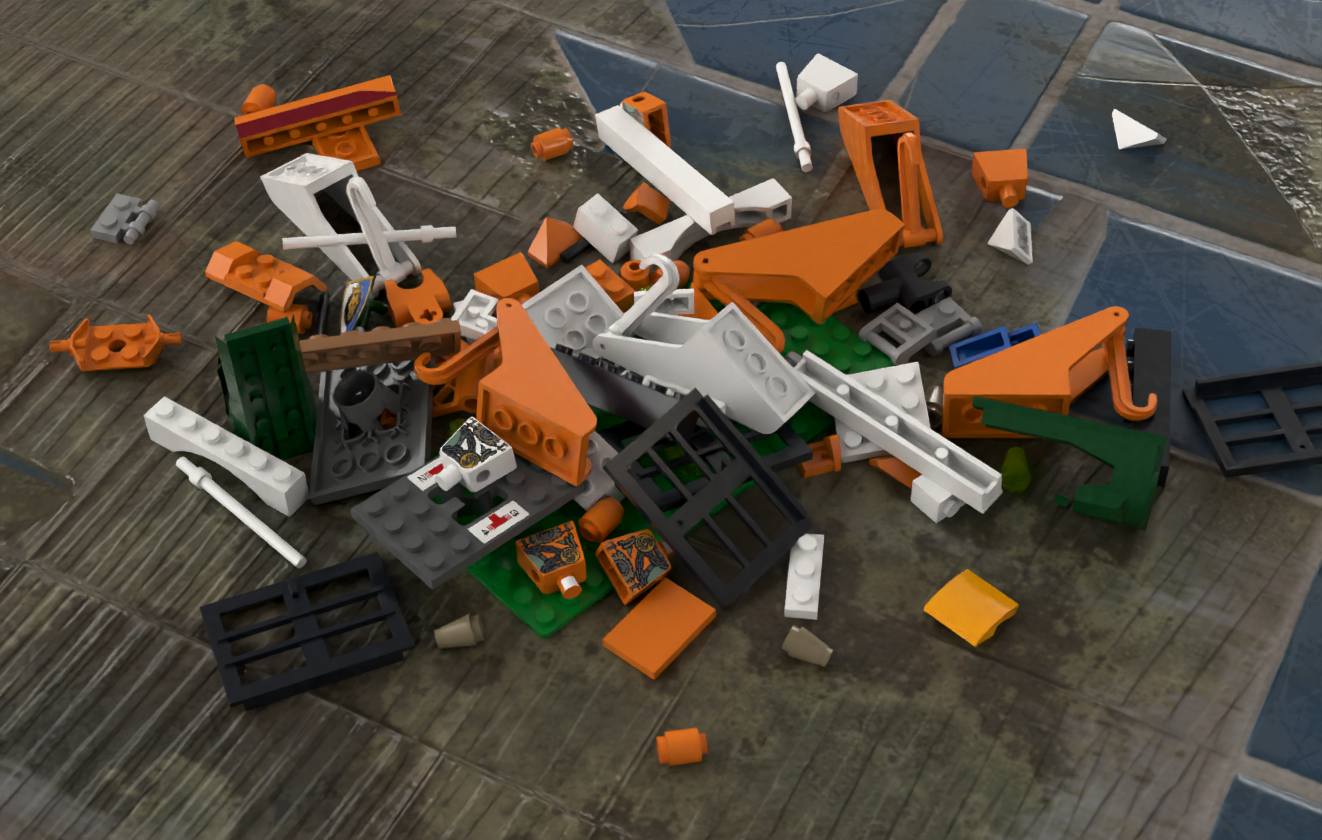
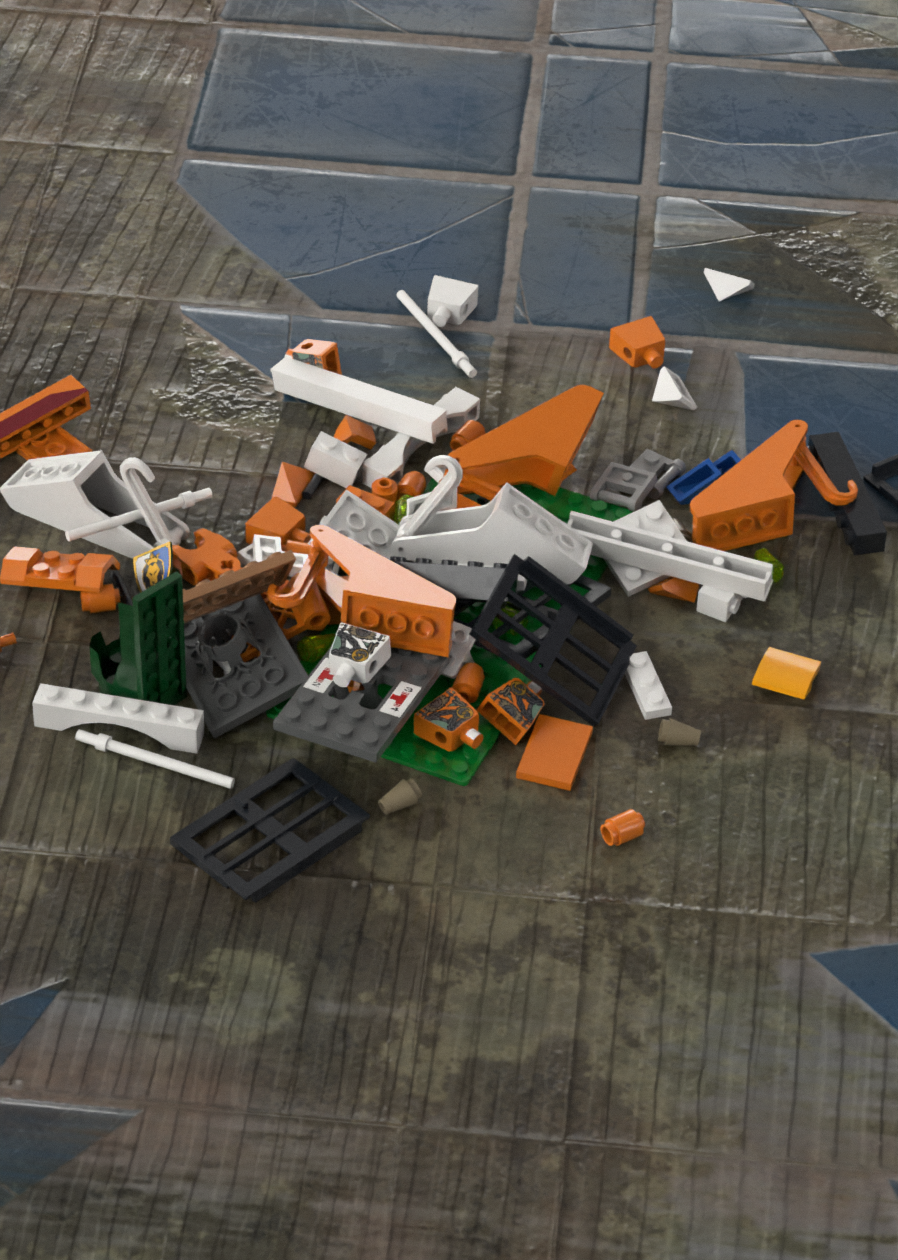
camera: 25 degrees left, 5 degrees down
(552, 144) = (242, 403): orange brick -> none
(825, 457) = (619, 593): orange tile -> none
(885, 117) = (513, 334): orange piece -> none
(904, 286) = (604, 447): black connector -> none
(1130, 452) = (861, 527): dark green piece -> none

